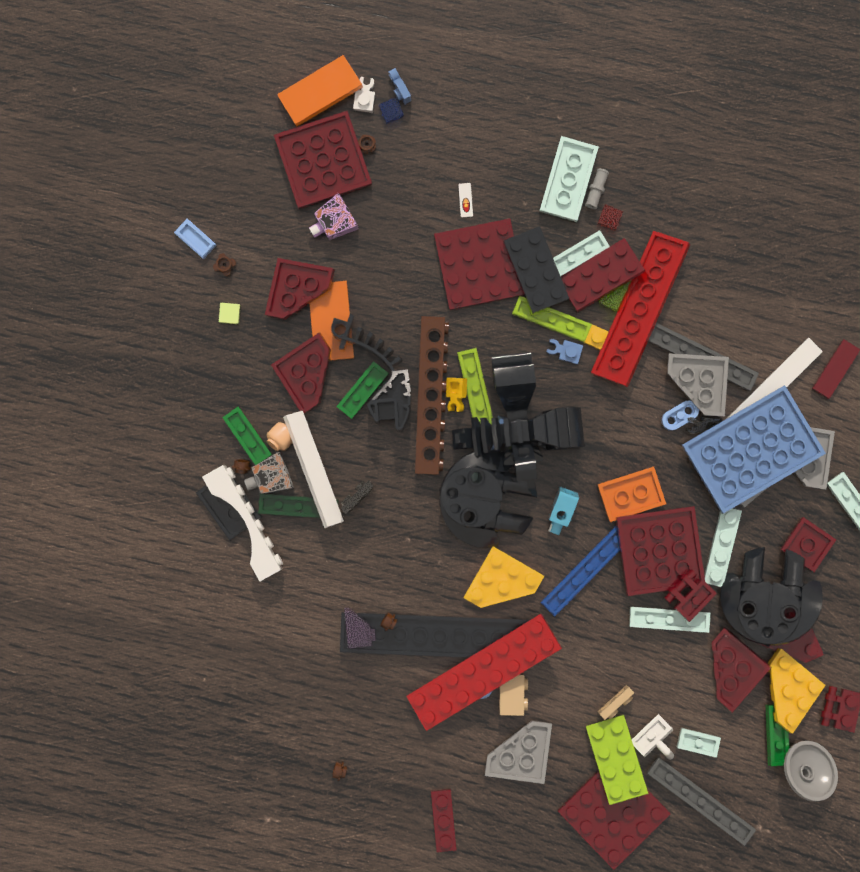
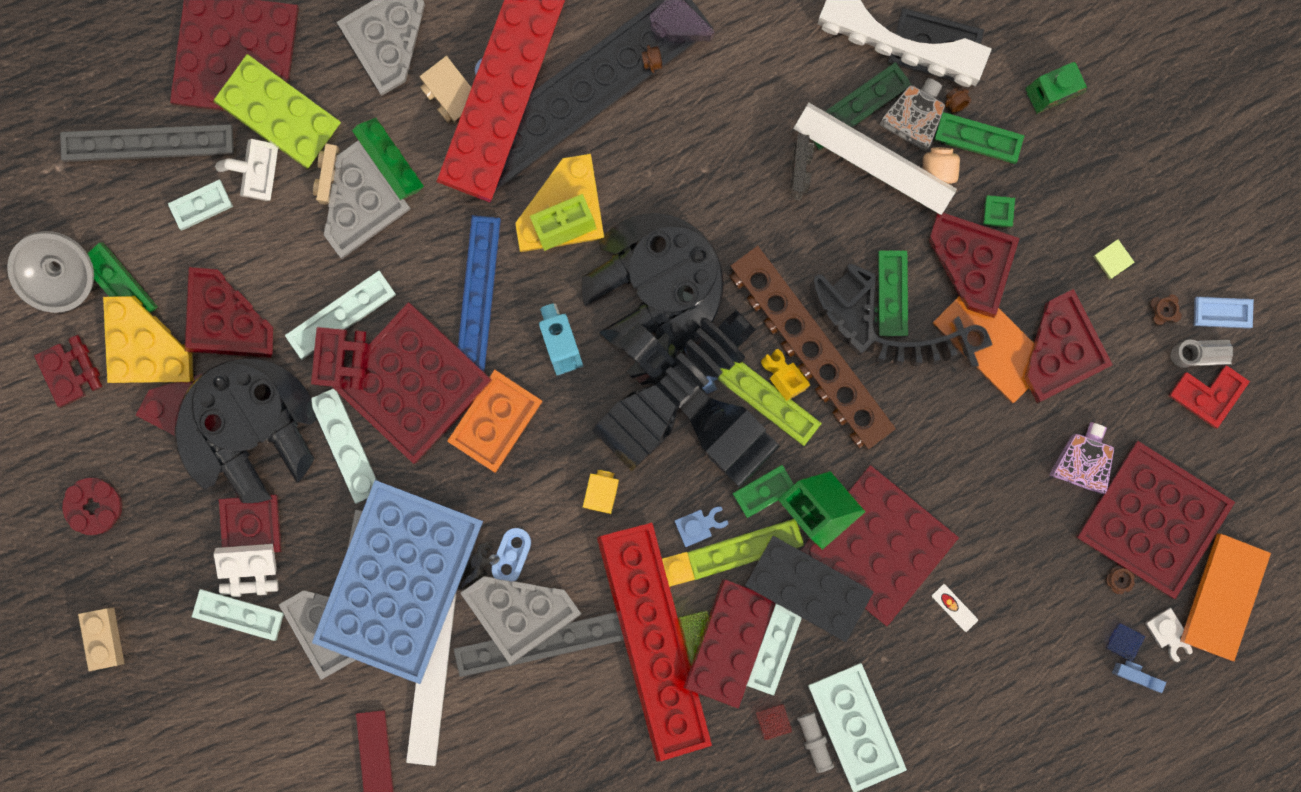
camera: 135 degrees right, 0 degrees up
(184, 428) = (1057, 87): none -> green torso
(224, 225) = (1203, 353): none -> light grey piece
(239, 195) = (1210, 402): none -> red plate
(269, 388) = (999, 211): none -> green plate
(495, 306) = (821, 507): none -> green slope
(510, 571) = (563, 222): none -> lime hinge
(517, 340) = (763, 491): none -> green plate
(576, 684) = (388, 158): none -> green plate
(605, 410) = (601, 492): none -> yellow brick
(609, 673) = (359, 201): none -> light grey plate
(825, 525) = (246, 562): none -> white plate

